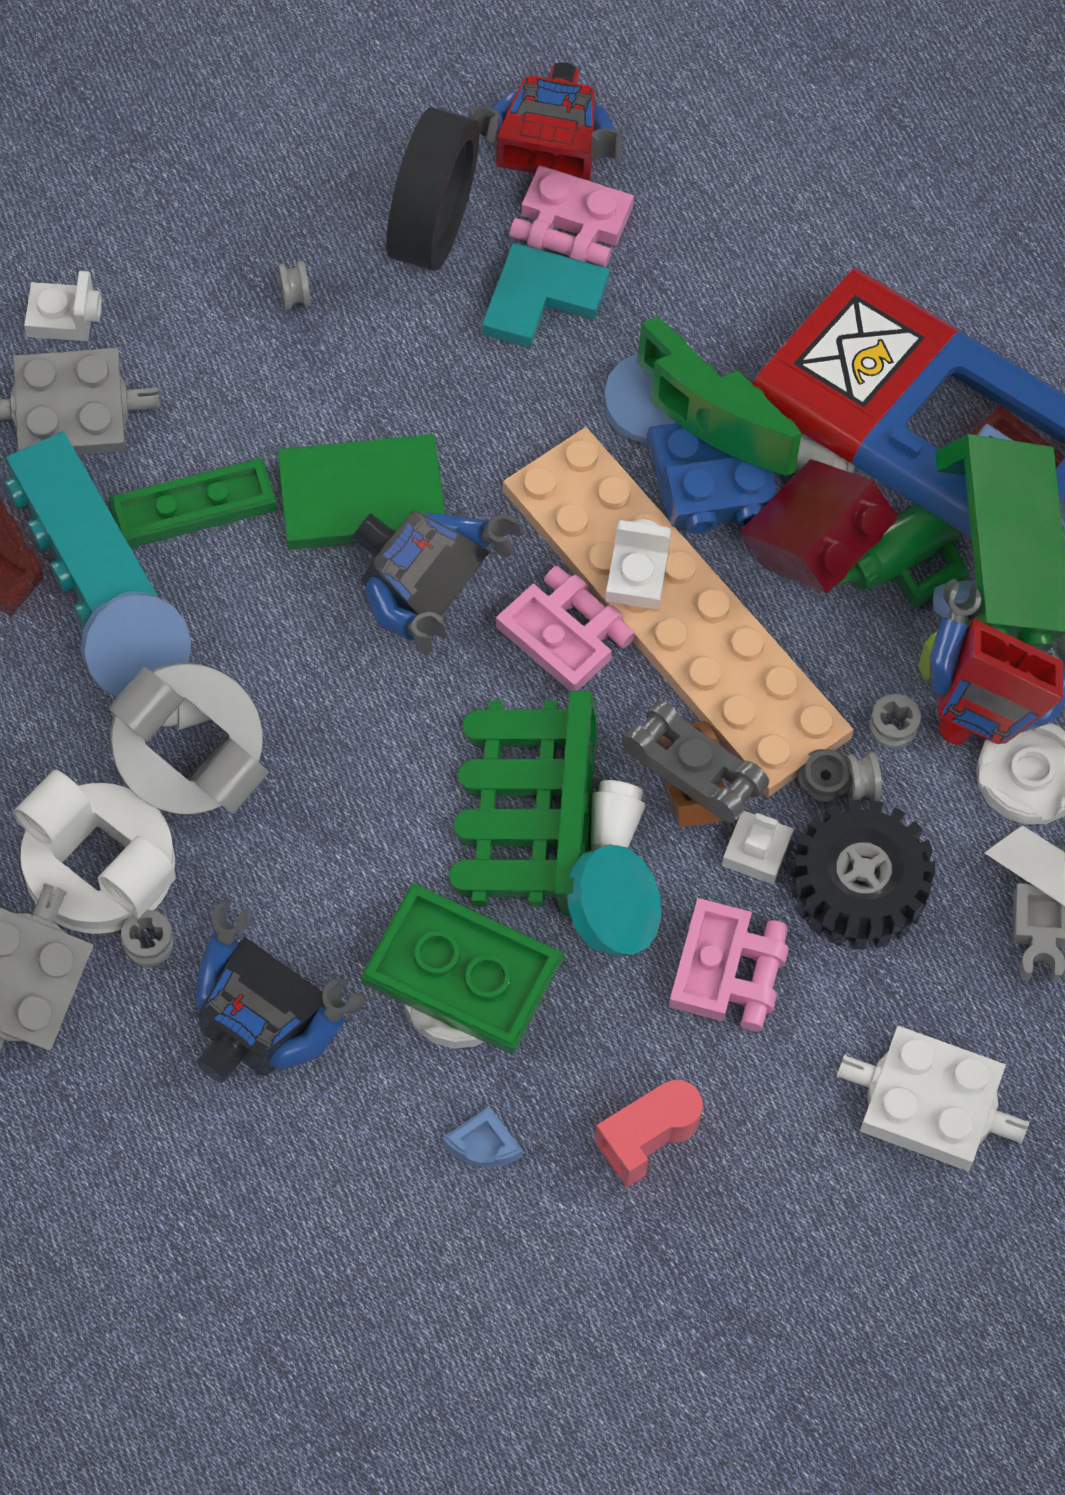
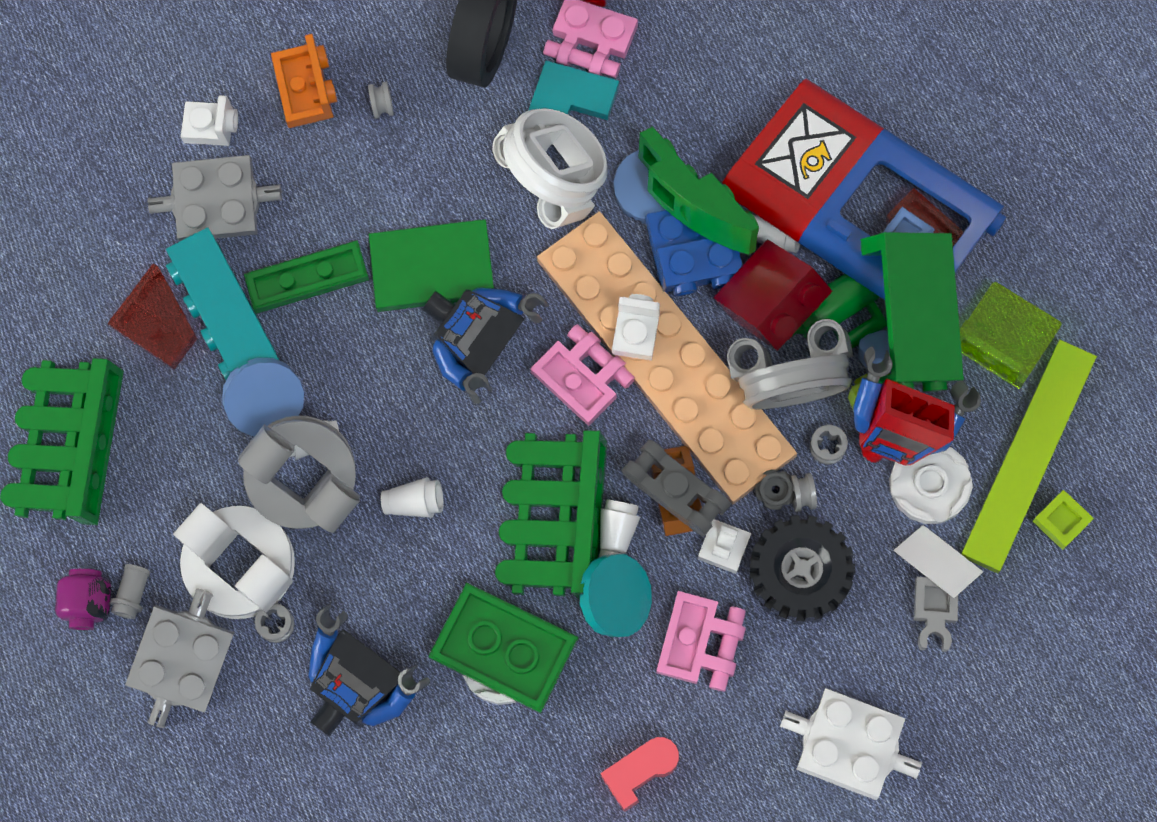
camera: 10 degrees right, 10 degrees up
(191, 264) = (302, 83): none -> orange bracket
(338, 781) = (415, 498): none -> white cone
(483, 1141) = (519, 778): medium blue tile -> none
(542, 391) = (562, 193): none -> white piece
(852, 627) = (796, 380): none -> light grey piece

